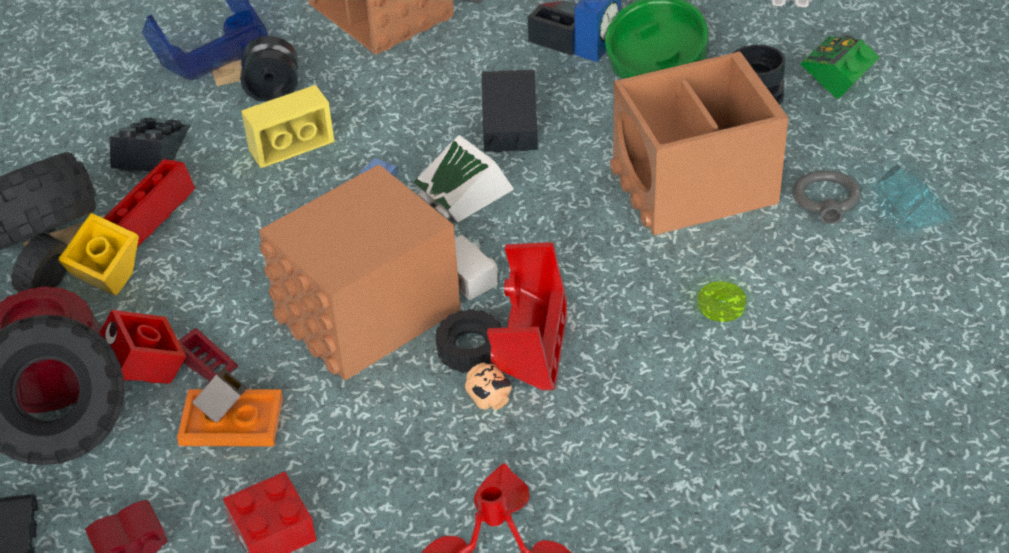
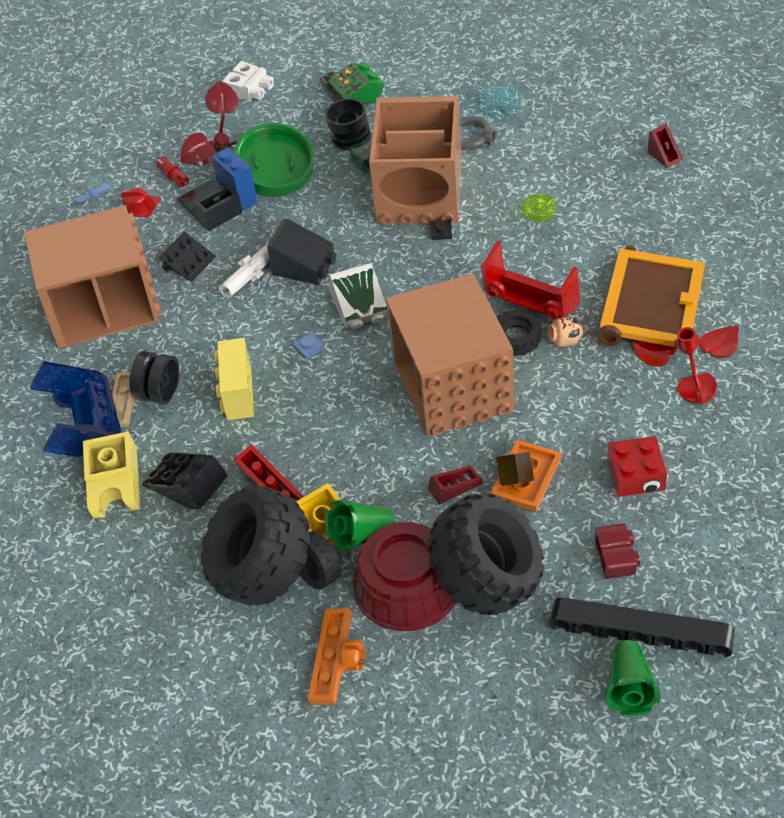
camera: 65 degrees left, 5 degrees up
(85, 274) = (354, 522): none -> green cone
(134, 91) = (111, 472): none -> light yellow brick
(143, 346) = (436, 499): red brick -> none
(467, 85) = (249, 269): none -> white piece
(473, 37) = (186, 257): none -> black hinge
(594, 462) = (650, 298): none -> reddish brown door
(627, 222) = (441, 230): none -> black plate
(919, 394) = (663, 146): none -> dark red slope

